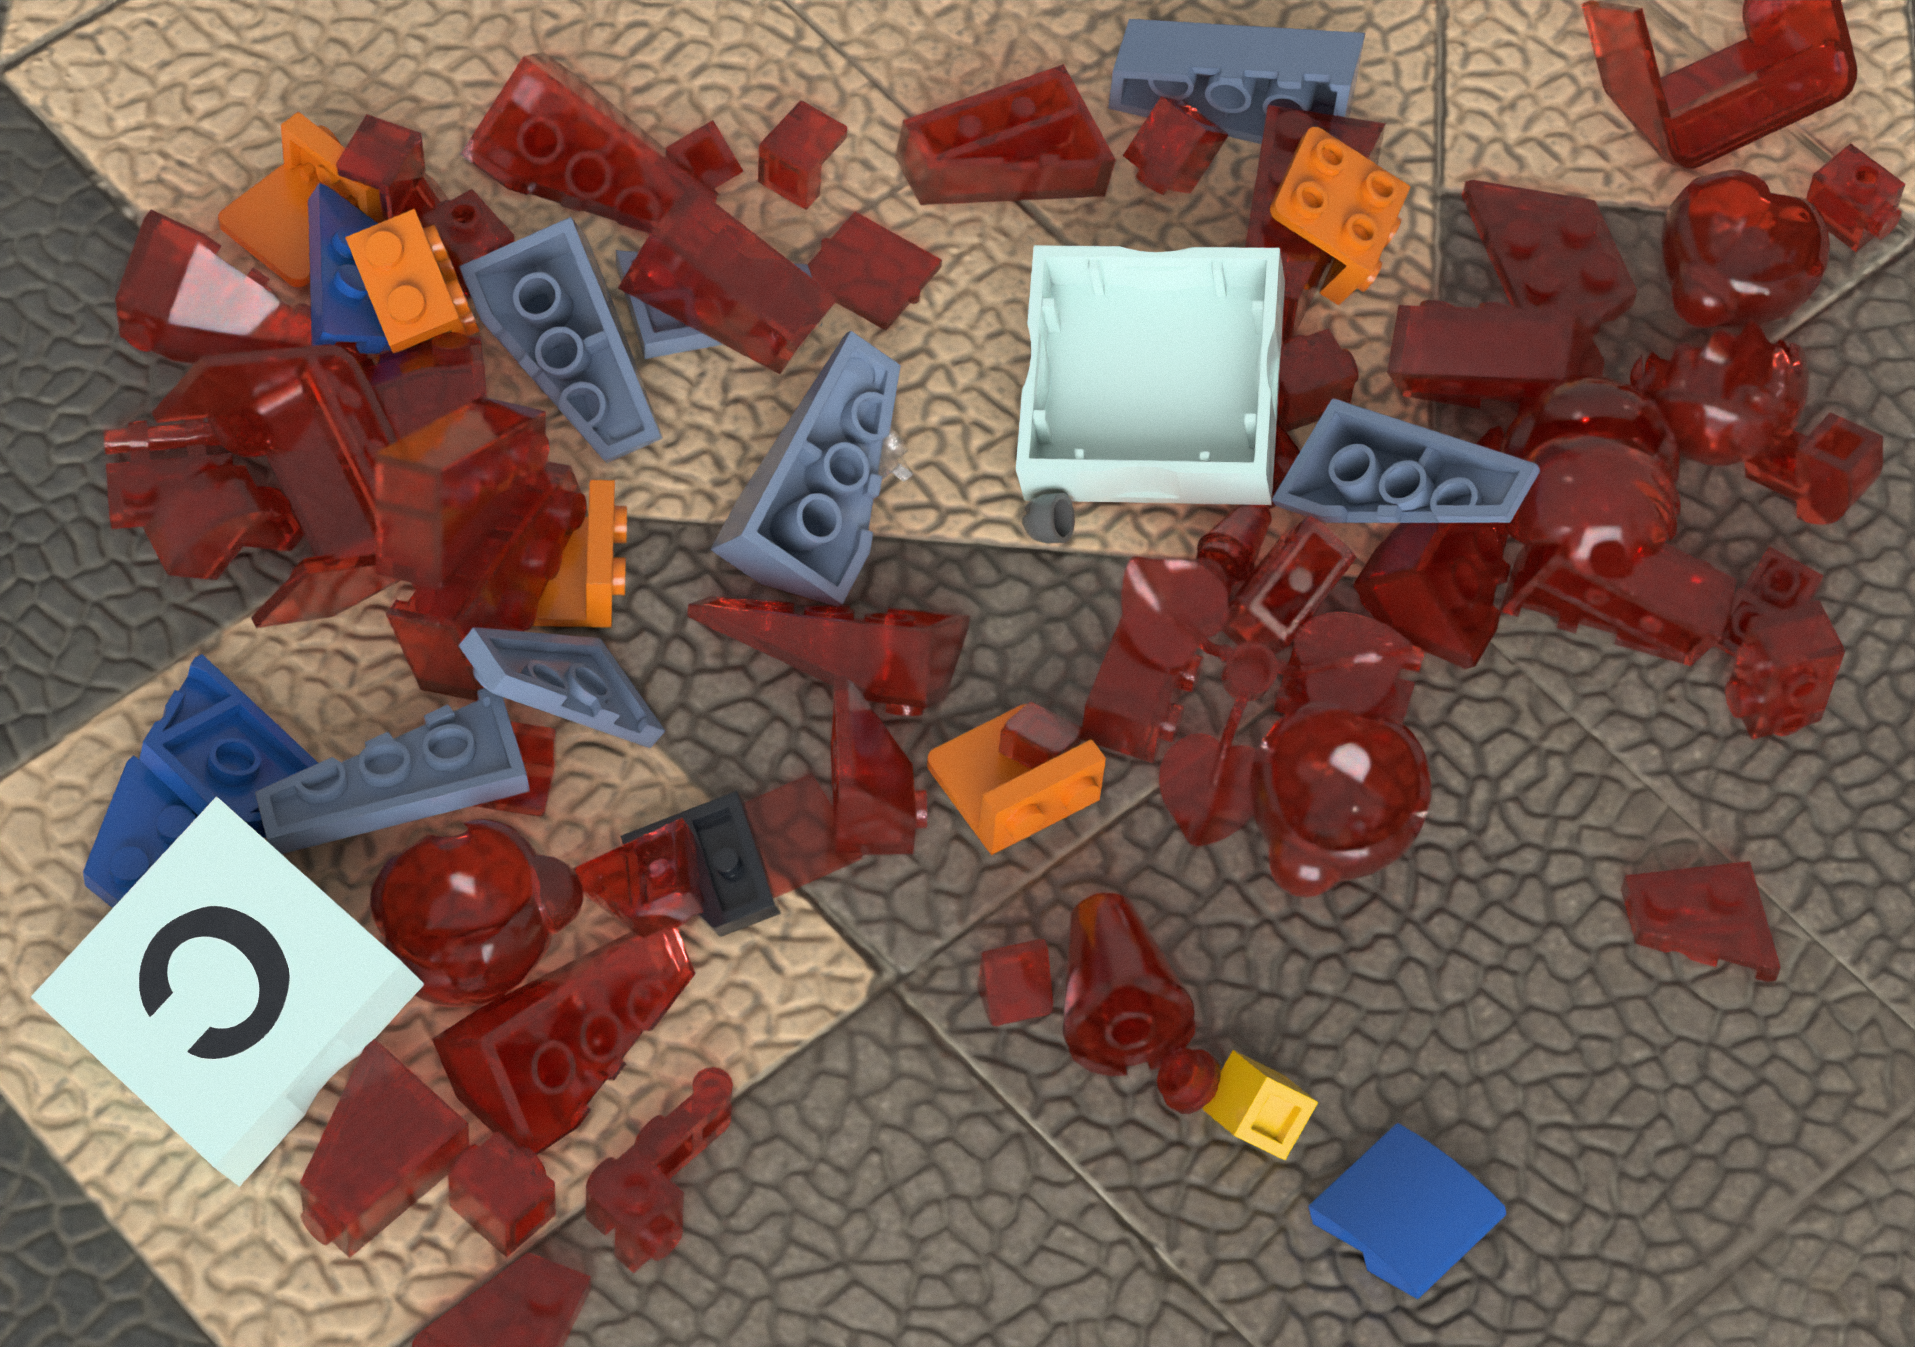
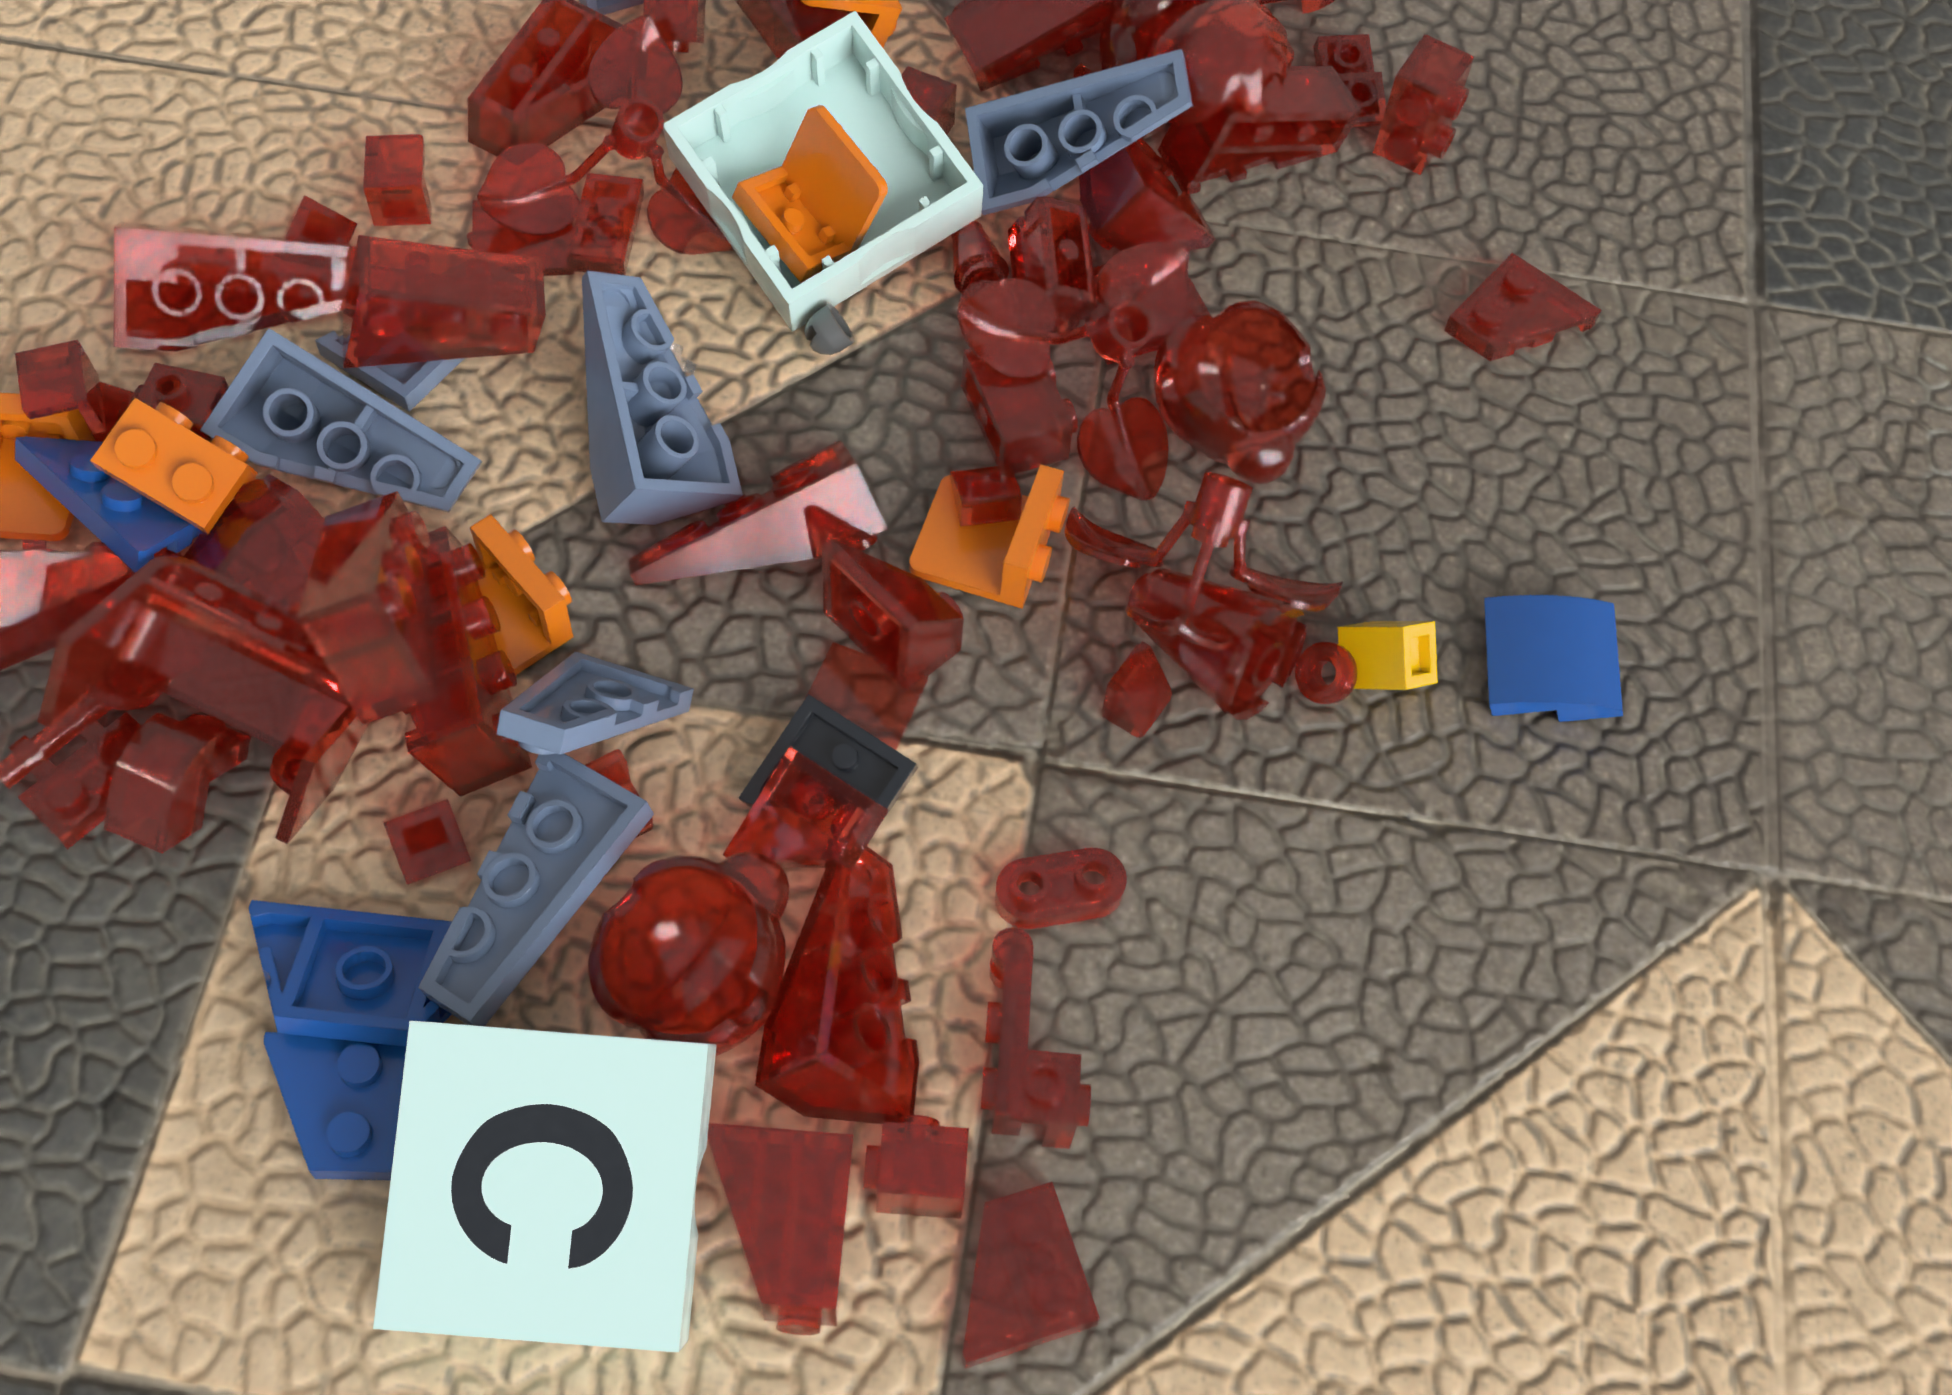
camera: 40 degrees left, 5 degrees up
(365, 702) = (426, 840): none -> clear red slope
(804, 1085) = (1064, 891): none -> clear red plate
(905, 228) = (643, 80): none -> clear red plant
(943, 304) = (605, 224): none -> clear red plate
(1110, 394) = (817, 198): none -> orange bracket
(1174, 878) = (1216, 518): none -> clear red plant

